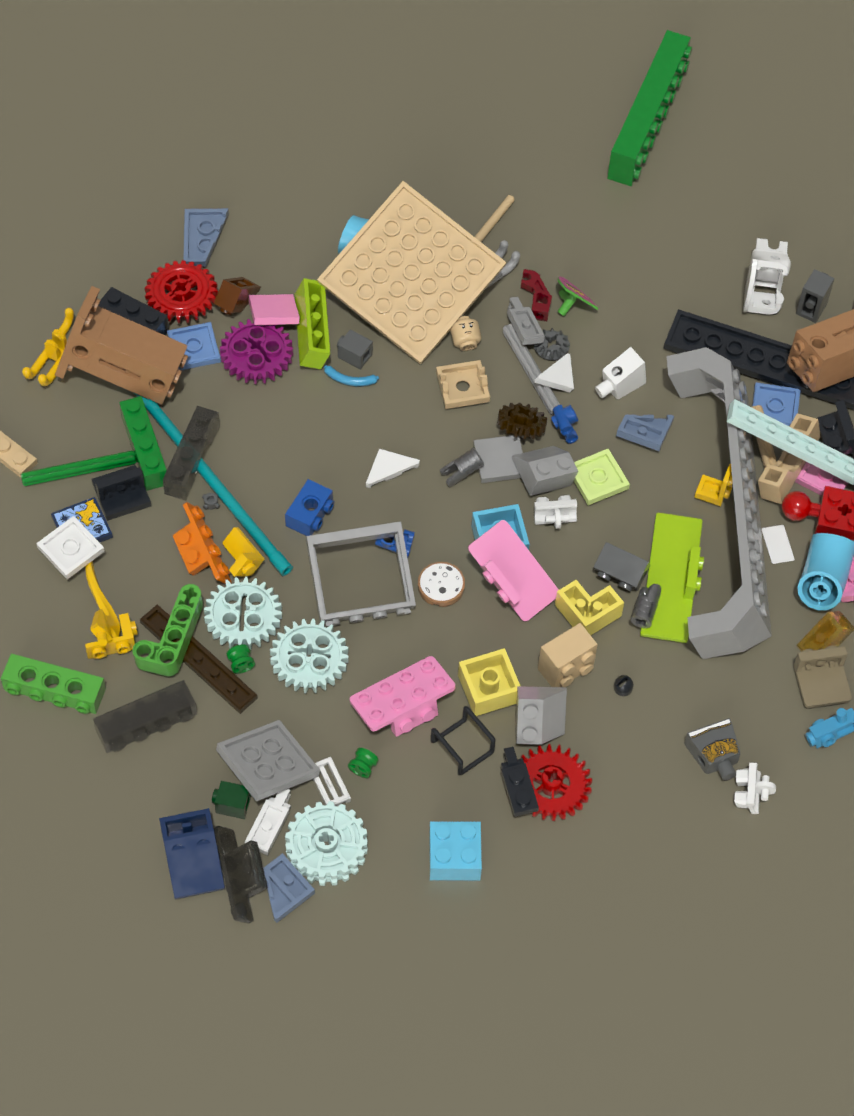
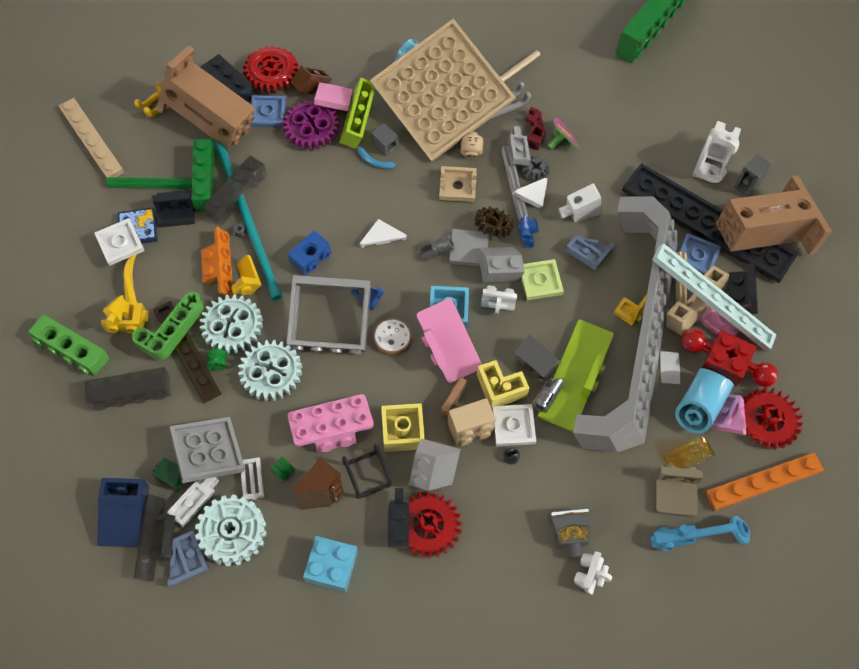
camera: 15 degrees right, 5 degrees up
(201, 233) = (301, 31): sand blue wing -> none
(418, 767) = (319, 487): none -> reddish brown slope
(536, 636) = (453, 397): none -> medium nougat tile
(618, 650) = (514, 425): none -> white plate

